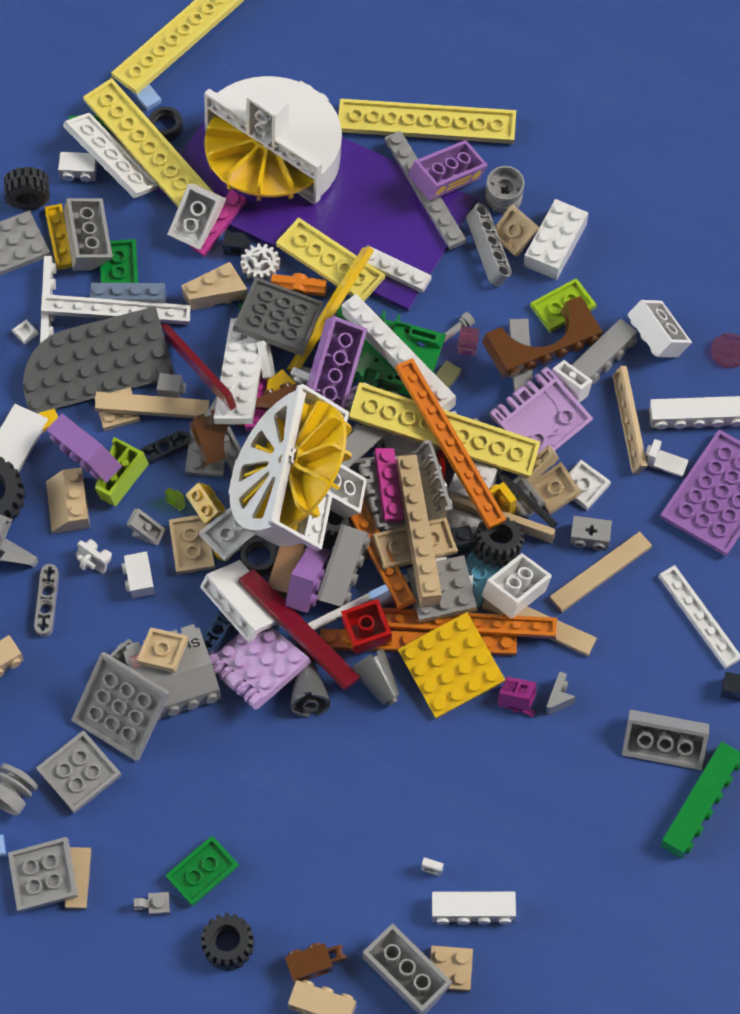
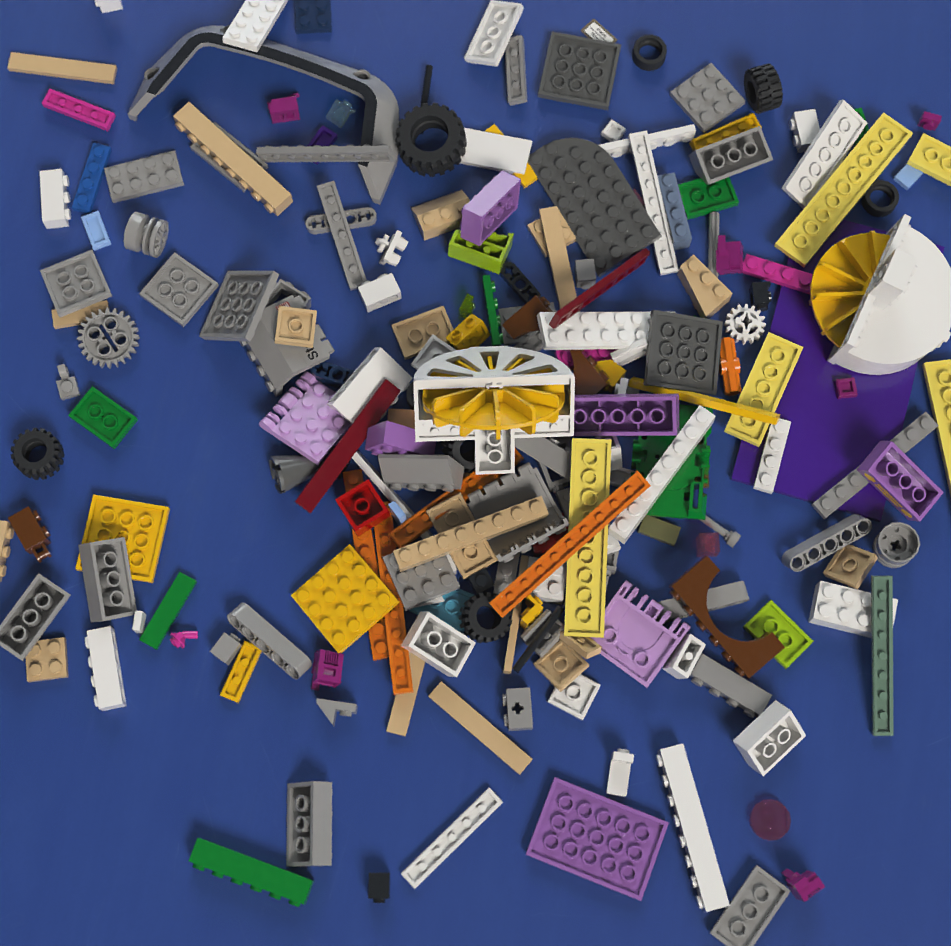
camera: 75 degrees right, 10 degrees up
(66, 598) = (342, 234): none -> light grey plate
(99, 65) = (929, 121): none -> magenta plate
(121, 867) = (93, 347): none -> light grey gear
(145, 527) = (430, 286): light grey slope -> none
(167, 270) = (713, 240): none -> light grey axle
(187, 478) = (492, 304): none -> green plate
(189, 259) = (729, 256): none -> magenta piece
(196, 215) = (776, 249): white slope -> none
(339, 871) = (138, 522): none -> yellow plate
(345, 195) = (846, 388): none -> magenta tile
(378, 678) = (317, 531): dark grey cone -> none
(383, 887) = (107, 579): none -> light grey slope
(388, 485) = (515, 495): dark pink plate -> none
(425, 839) = (168, 610): none -> green tile
(458, 832) = (178, 639): none -> dark pink plate
(477, 786) = (226, 648): none -> light grey brick
(478, 743) = (269, 640): none -> light grey beam
(502, 779) = (241, 672): none -> yellow tile
(602, 223) = (882, 654): none -> sand green tile
(629, 420) = (657, 726): tan tile -> none

